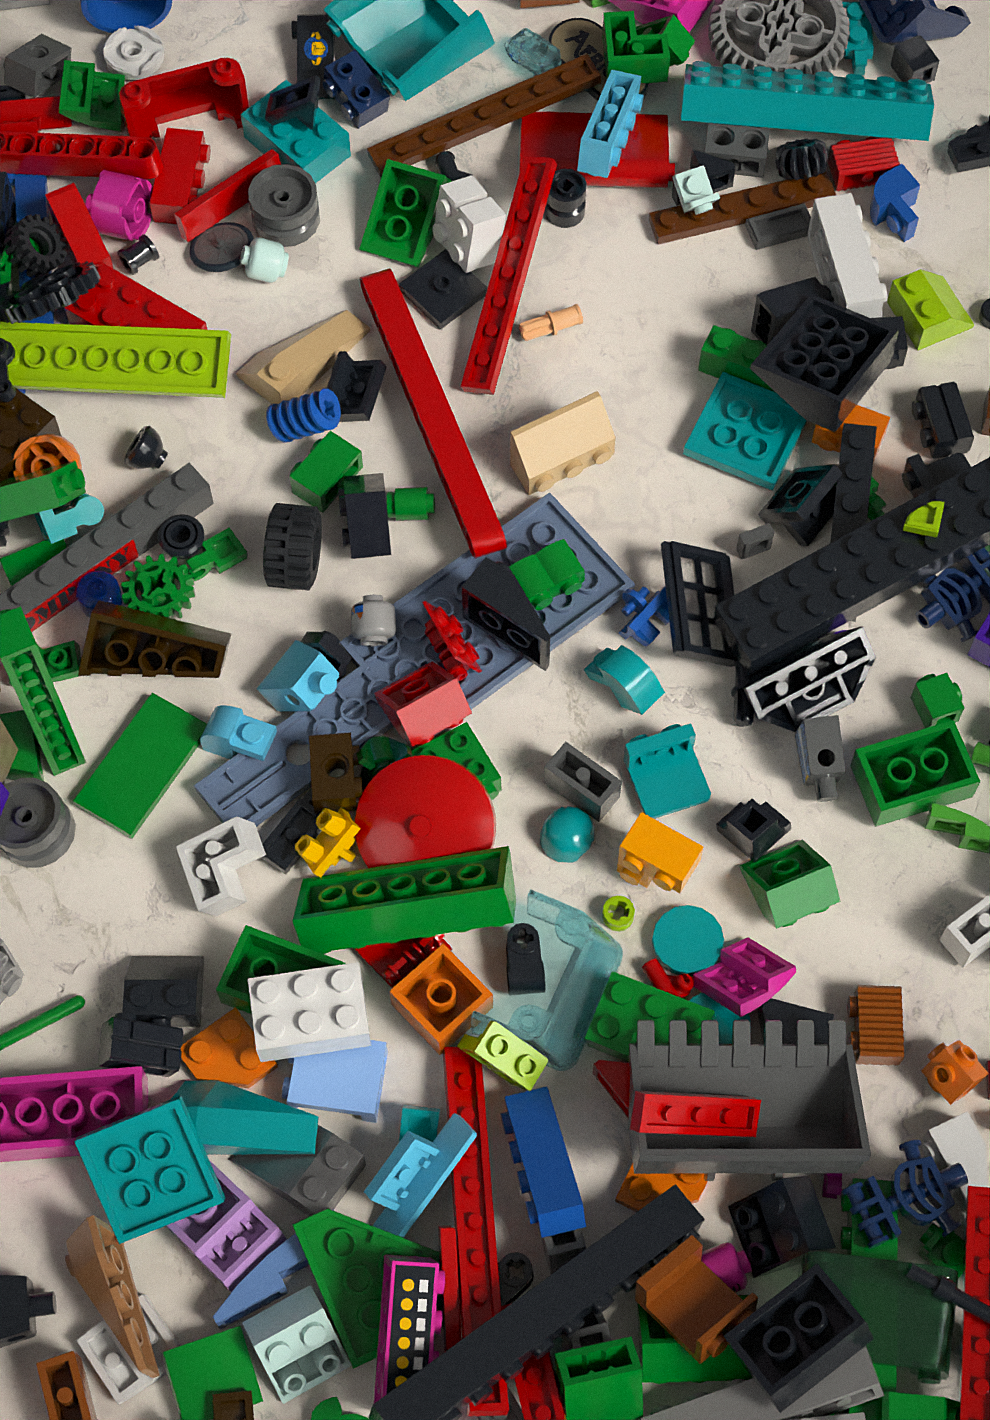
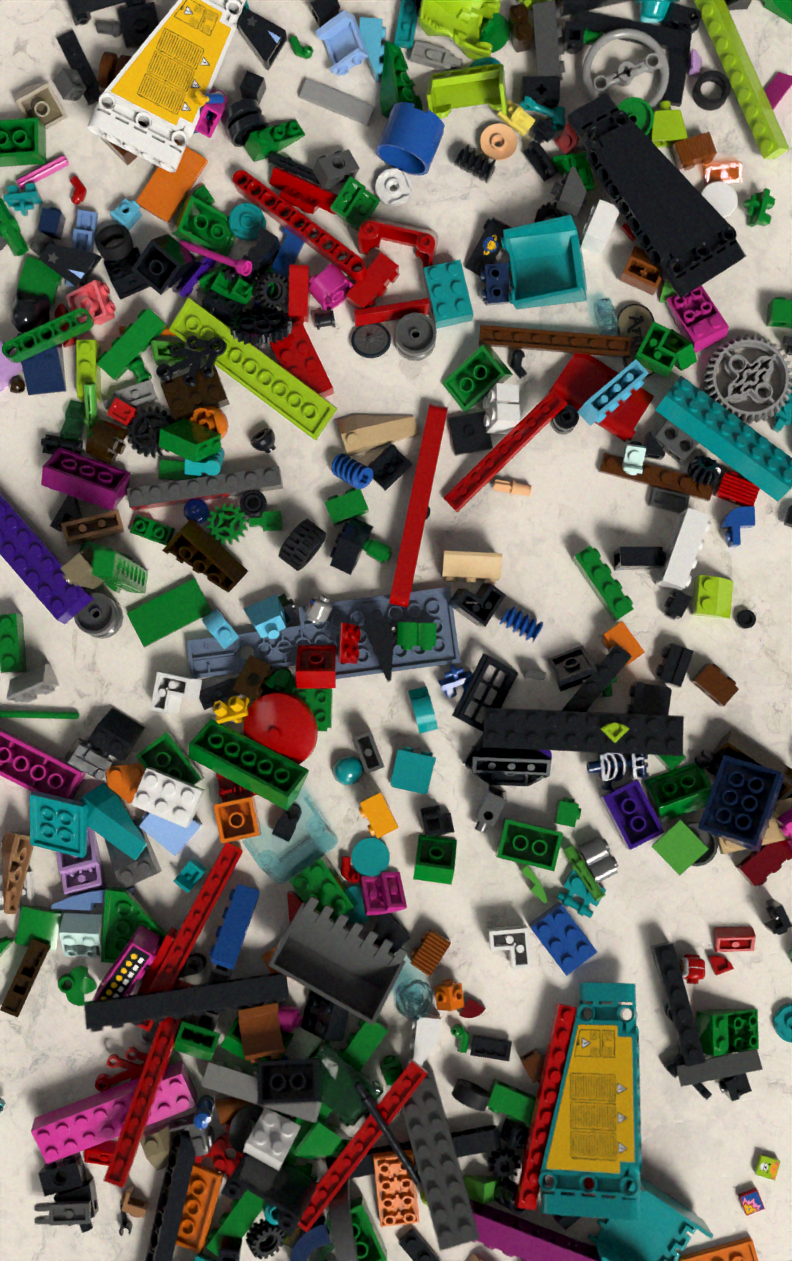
camera: 30 degrees right, 20 degrees up
(264, 260) = (386, 364): light aqua head -> none
(295, 101) = (451, 283): black slope -> none
(416, 1173) = (175, 897): medium azure bracket -> none
(505, 1055) = (247, 867): lime bracket -> none
(606, 492) = (477, 607): none -> black brick
(612, 904) = (347, 818): lime bush -> none
(688, 482) = (522, 623): none -> blue piece
(695, 1114) = (309, 956): red plate -> none
(745, 431) = (572, 610): teal plate -> none
(826, 360) = (630, 604): black slope -> none
(900, 1107) = (413, 999): none -> clear light blue cylinder
(933, 1185) = (405, 1045): dark blue piece -> none

